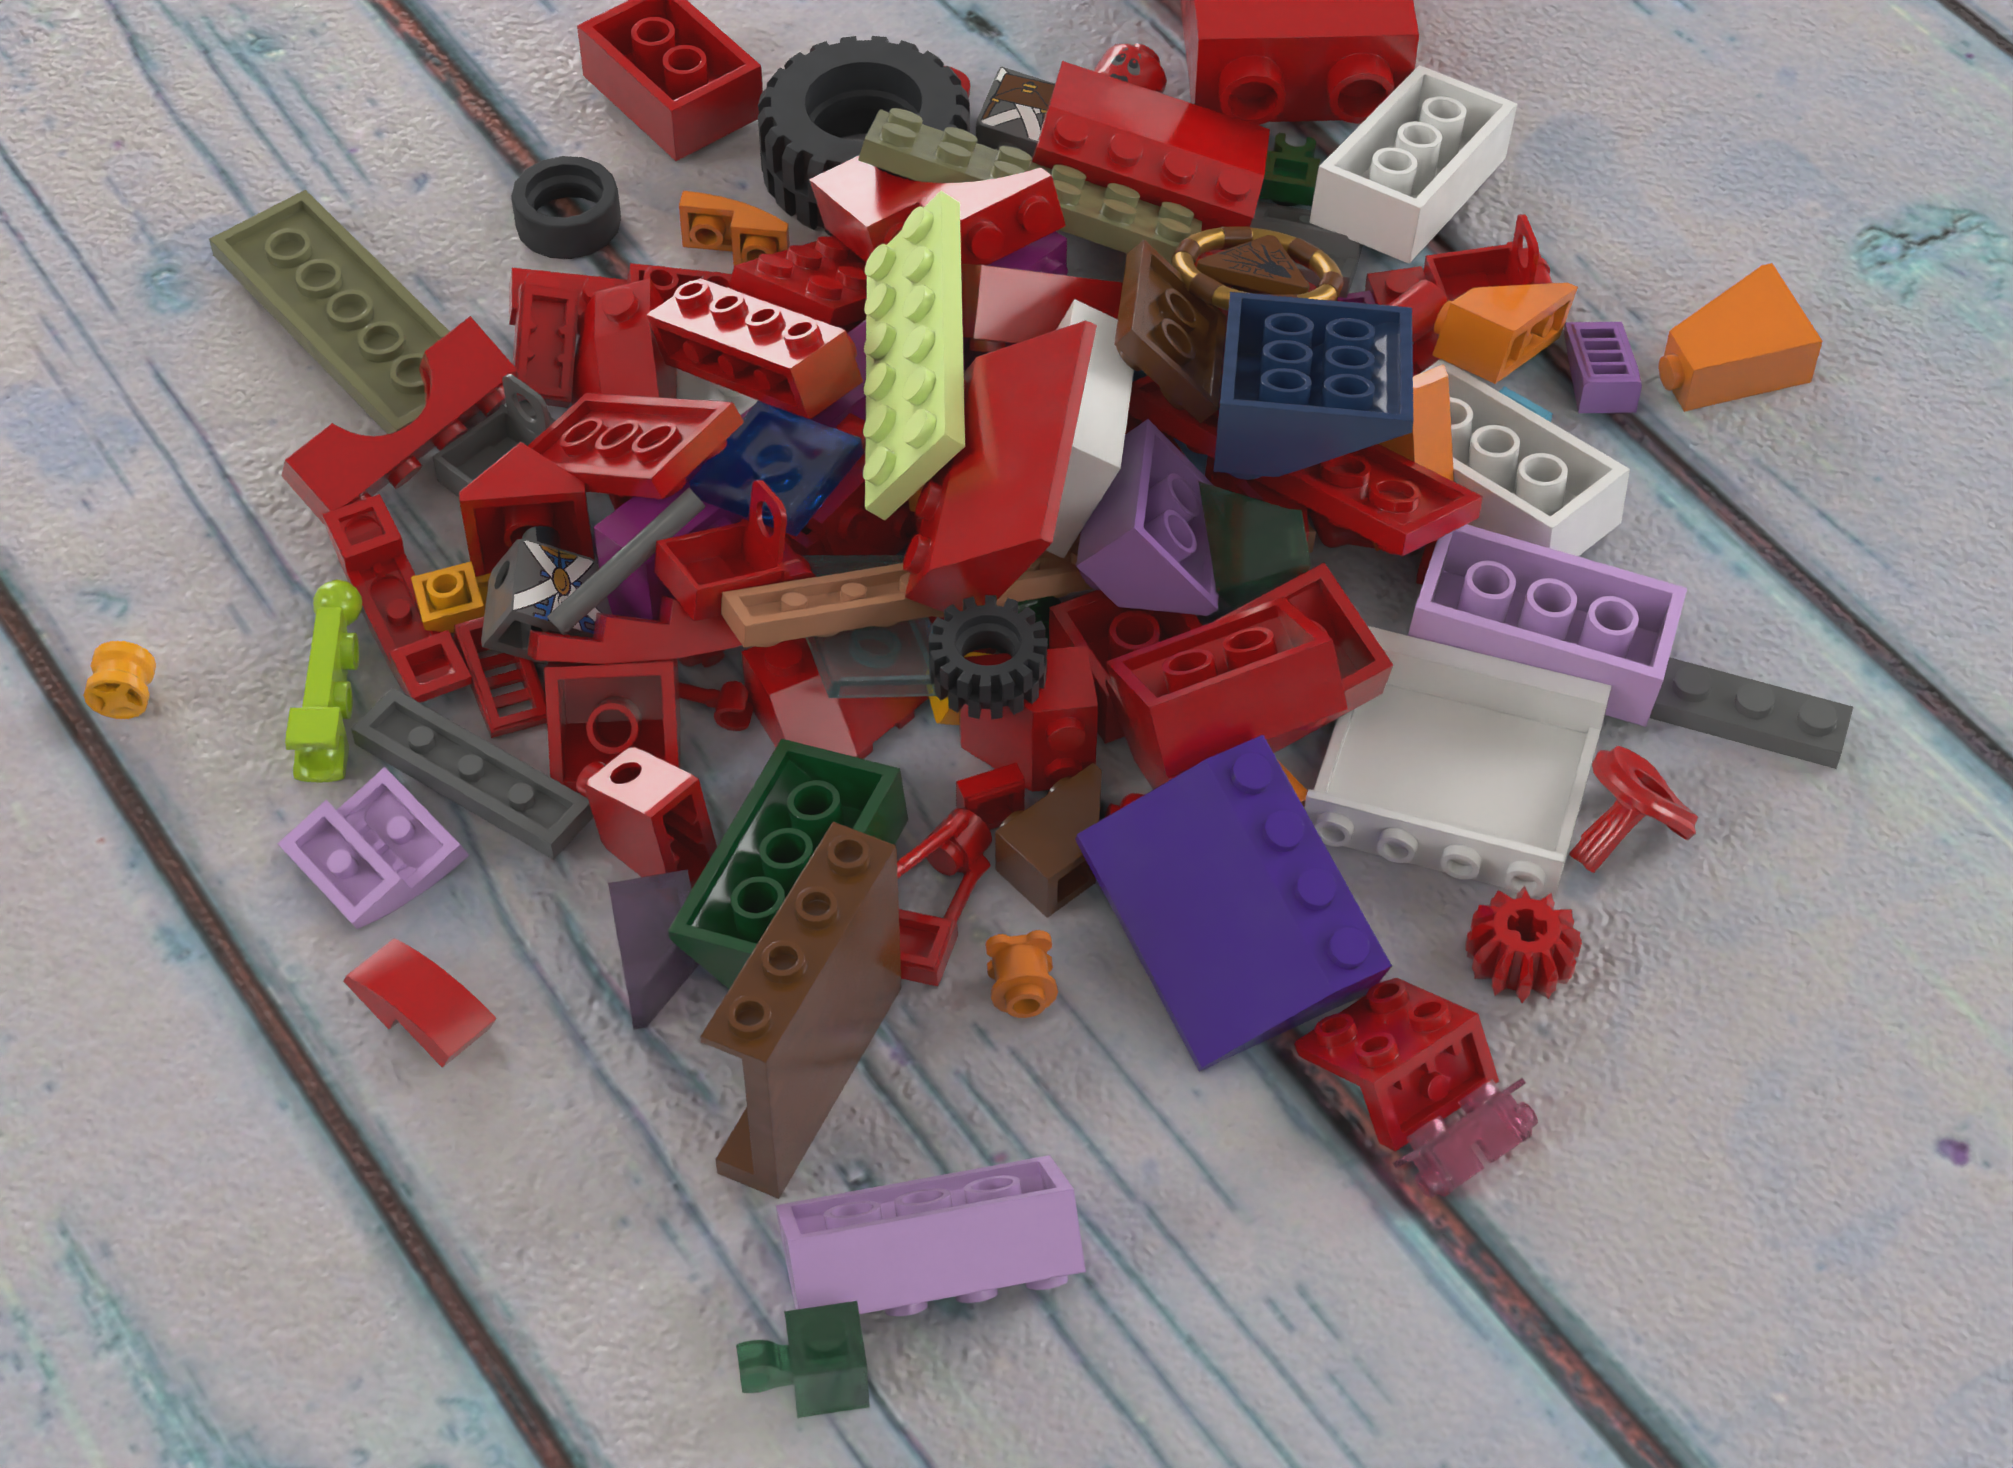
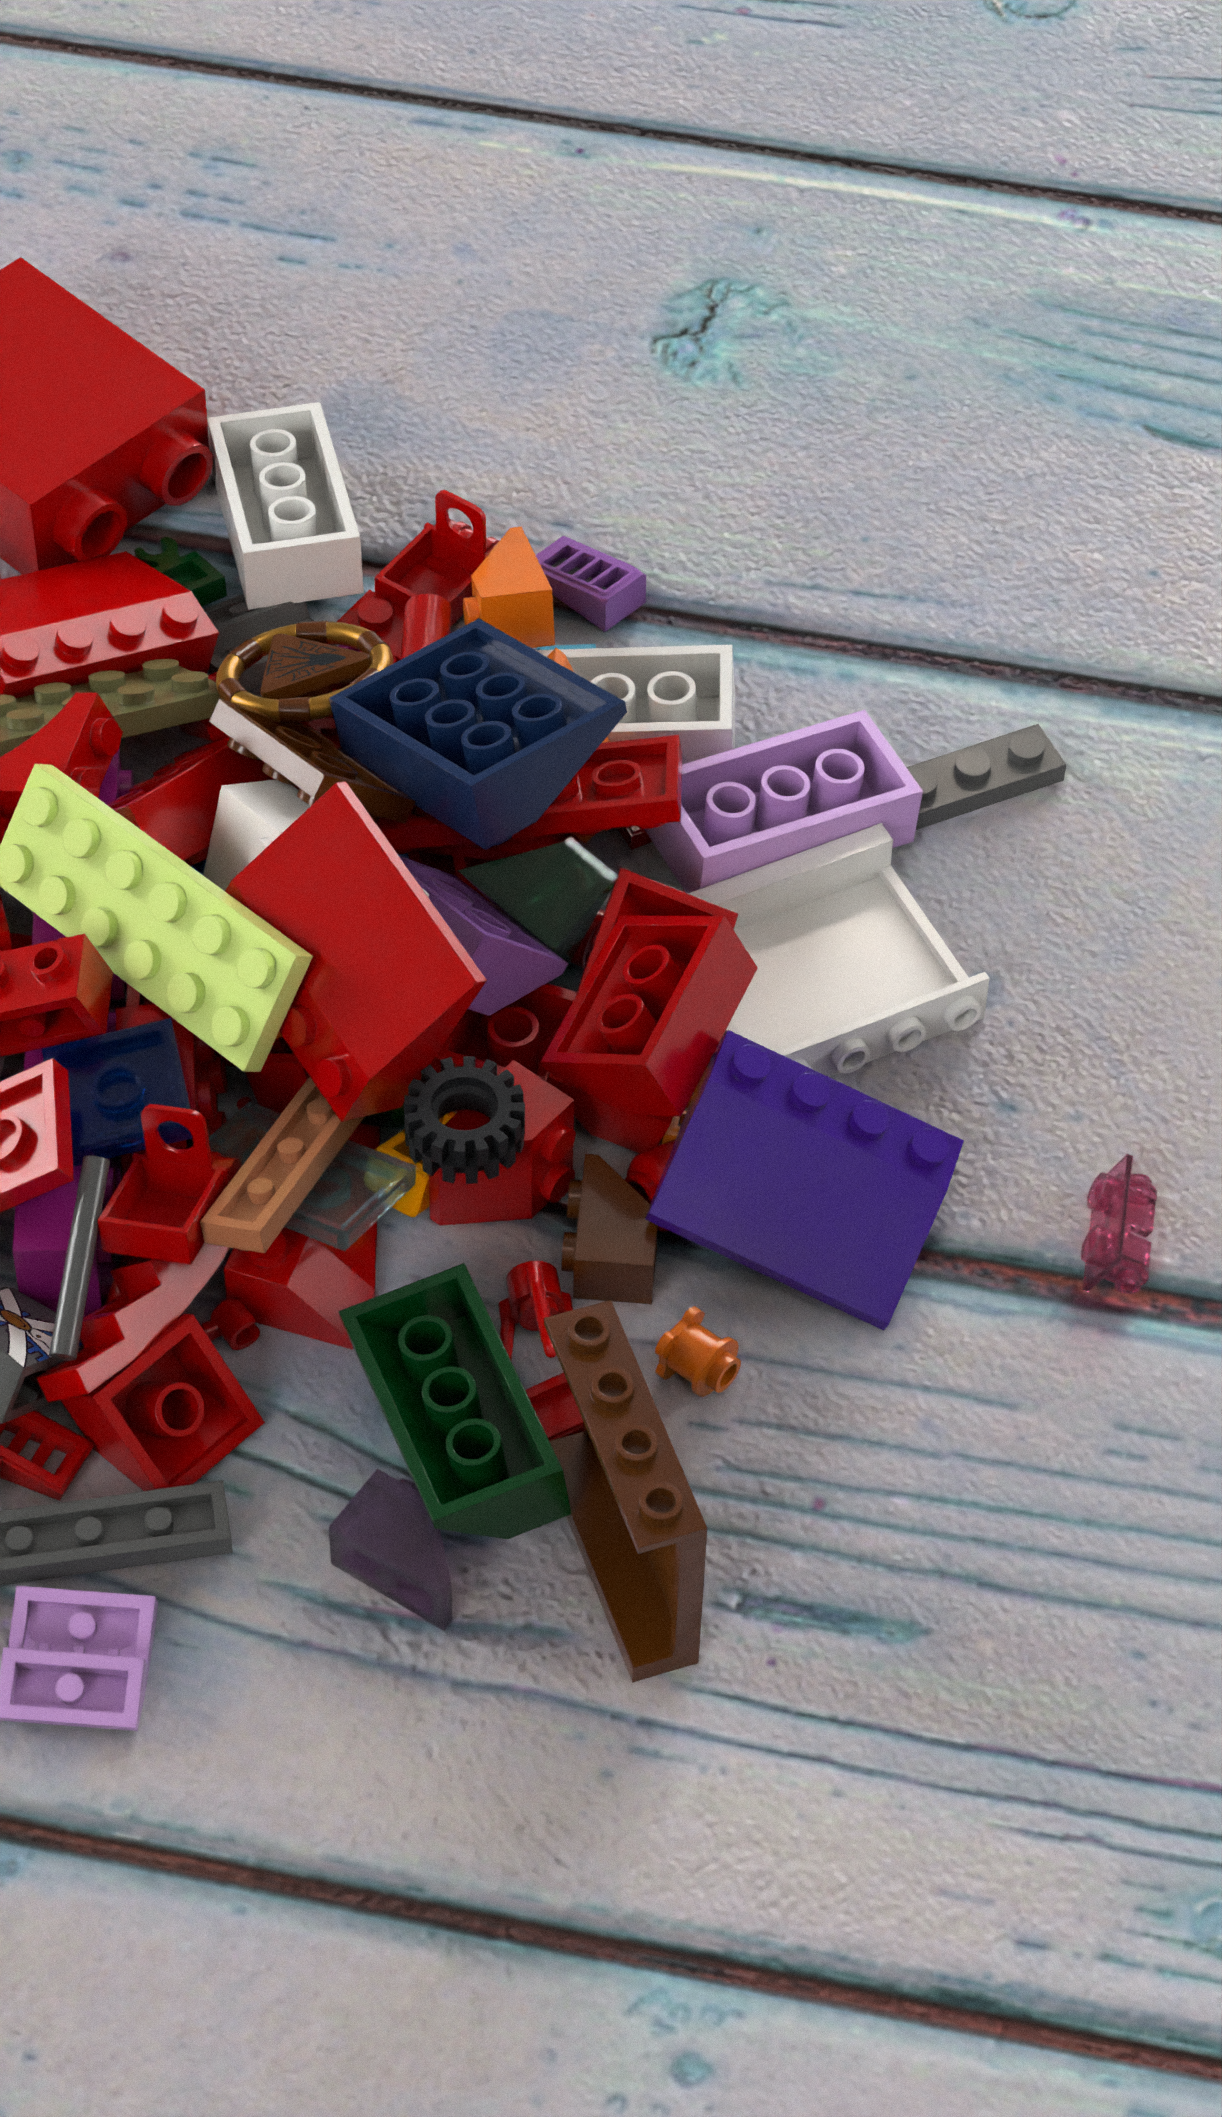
camera: 45 degrees left, 0 degrees up
(422, 997) = (253, 1734): red slope -> none
(649, 814) = (289, 1453): red torso -> none
(820, 1360) = (879, 1742): clear green brick -> none
(934, 1239) = (852, 1595): lavender slope -> none
(993, 794) = (528, 1236): red tile -> none
(1405, 1053) = (1014, 1198): red bracket -> none
(1523, 944) = (1012, 1062): red gear -> none
(1635, 799) = (987, 902): red piece -> none
(1741, 344) = (677, 493): orange slope -> none

